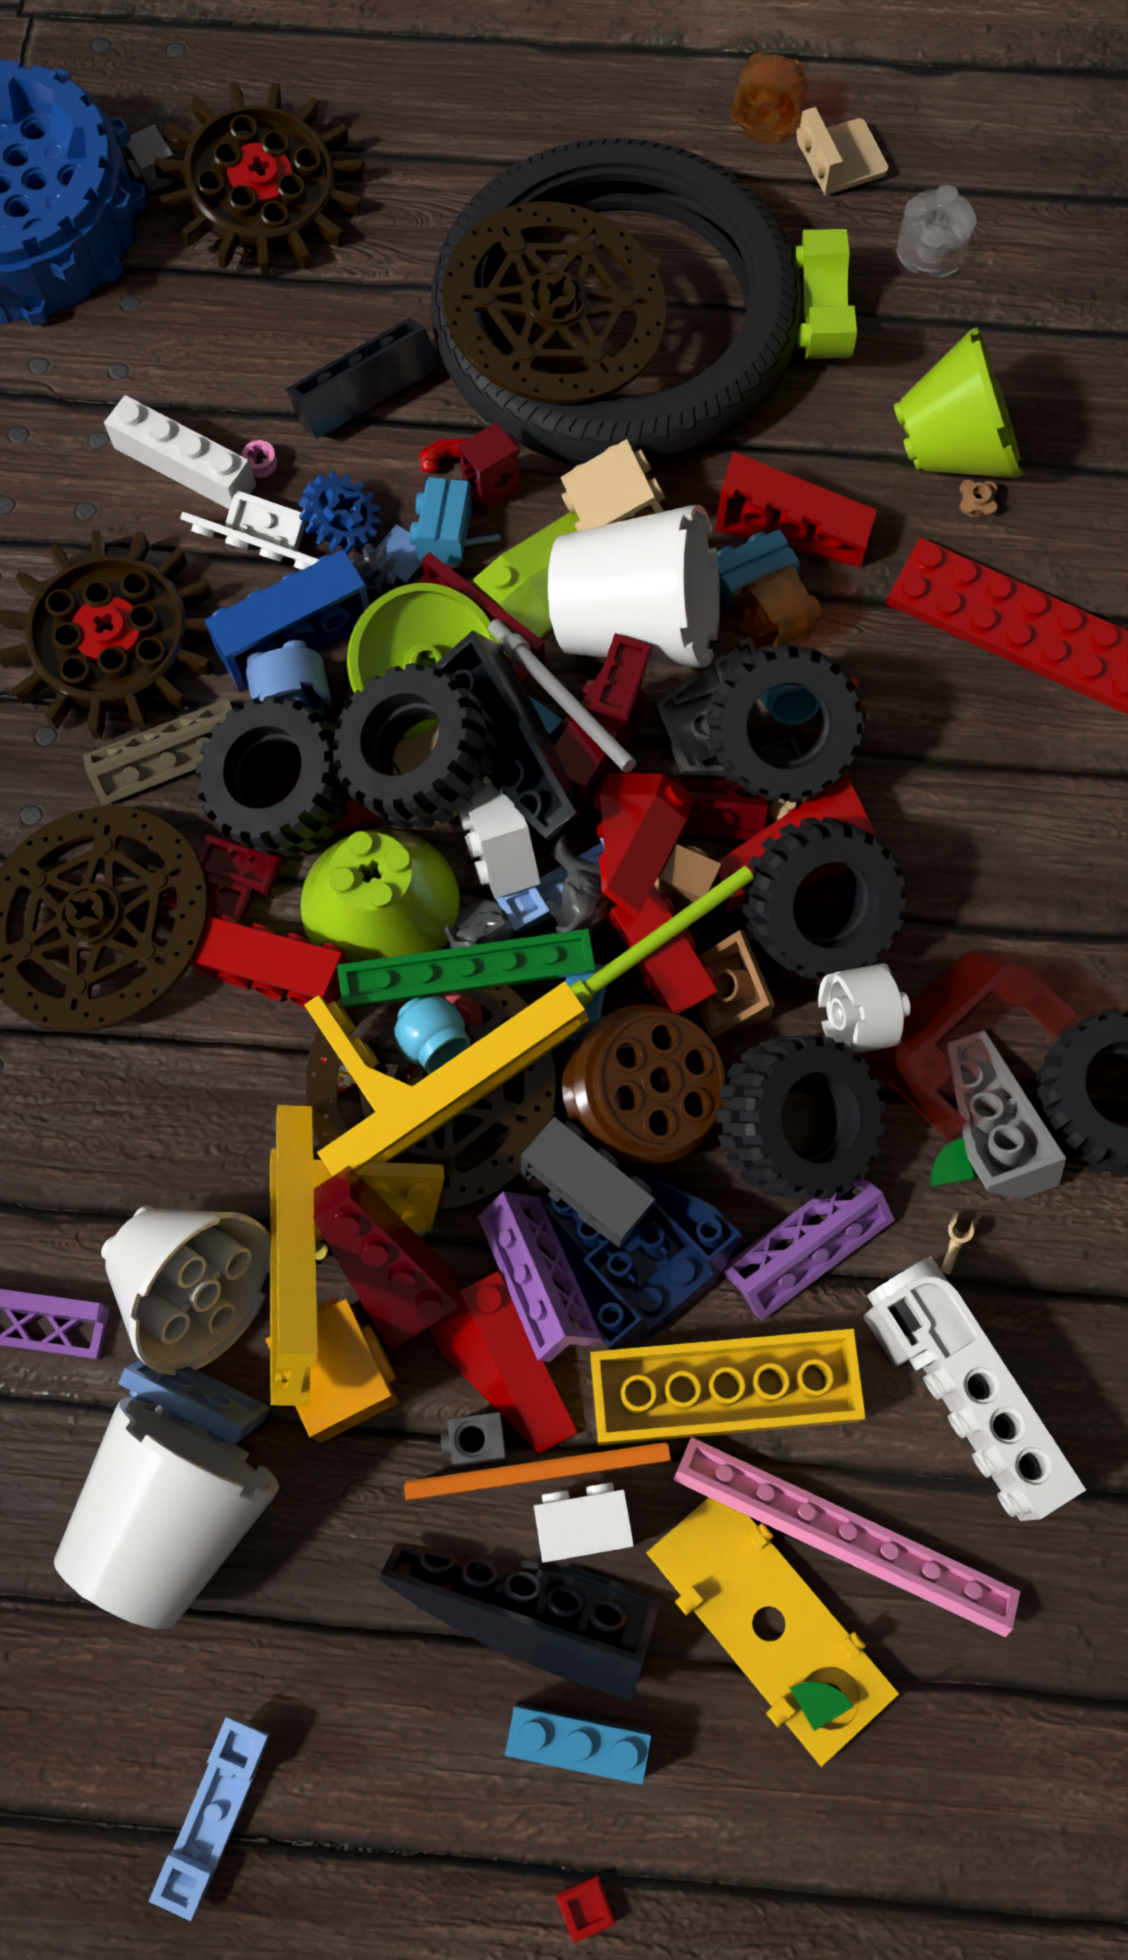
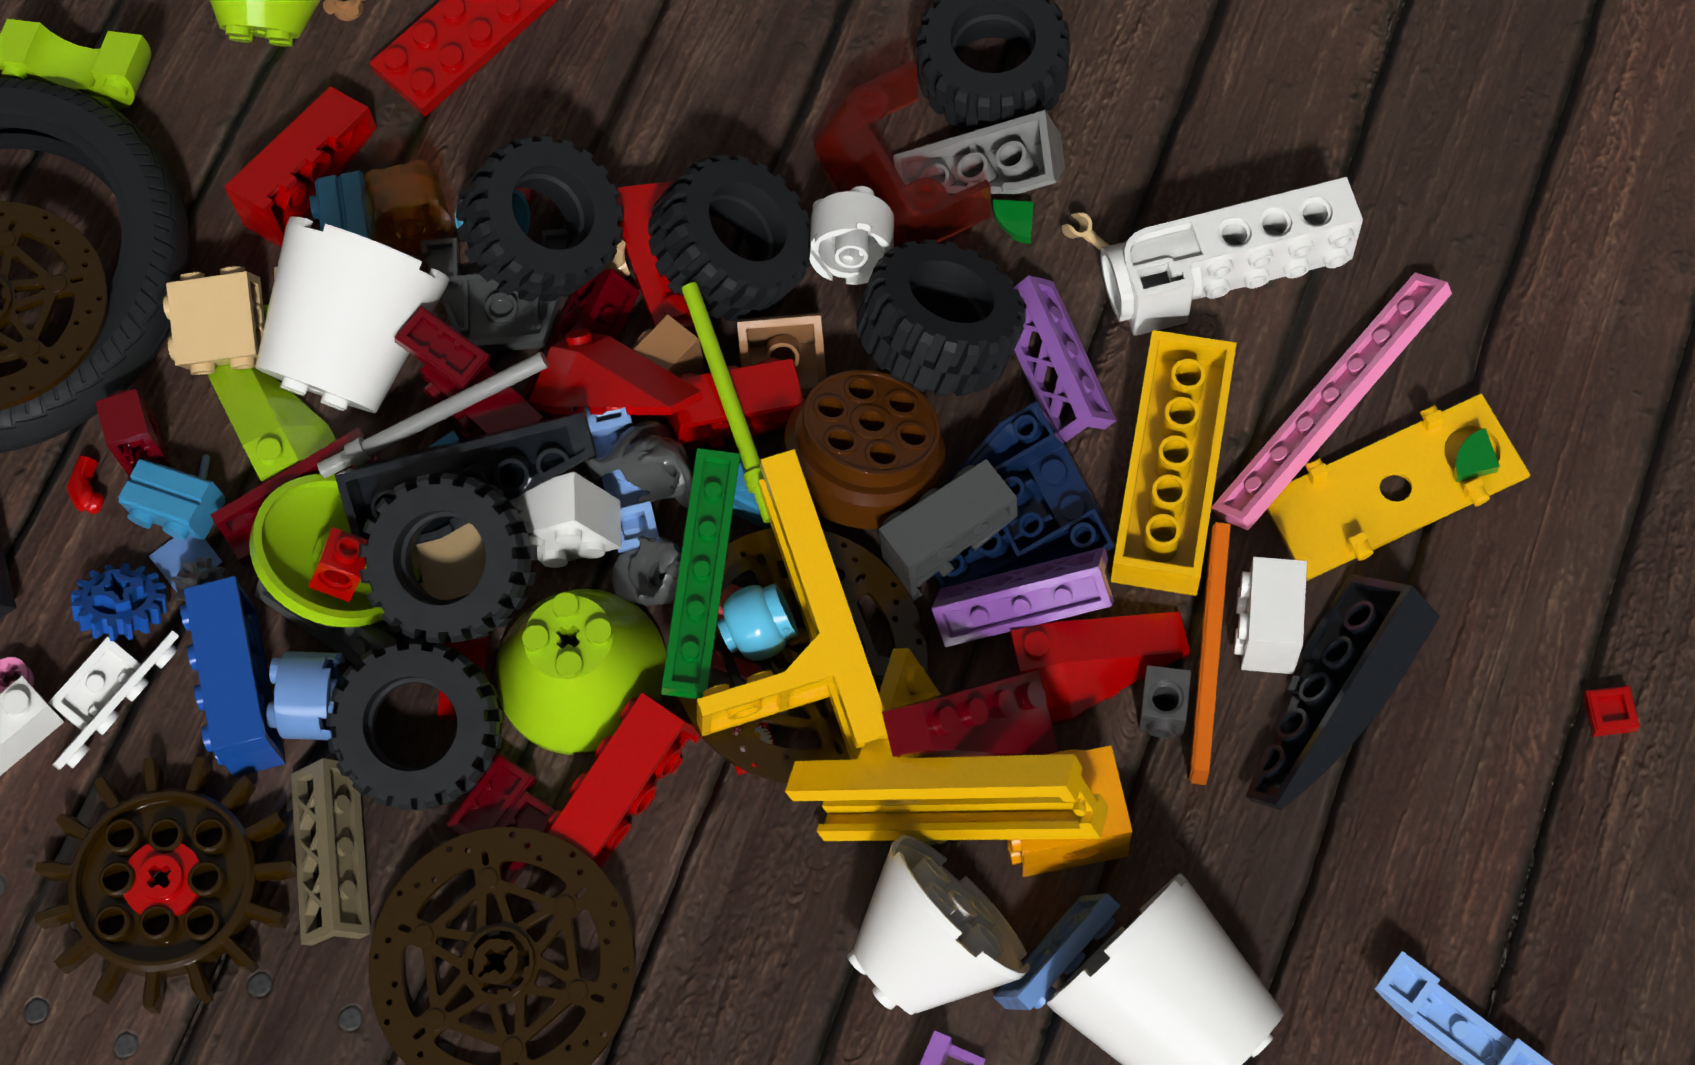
camera: 70 degrees left, 5 degrees down
(395, 654) = (339, 565): none -> red brick
(578, 1743) = (1466, 675): dark azure brick -> none

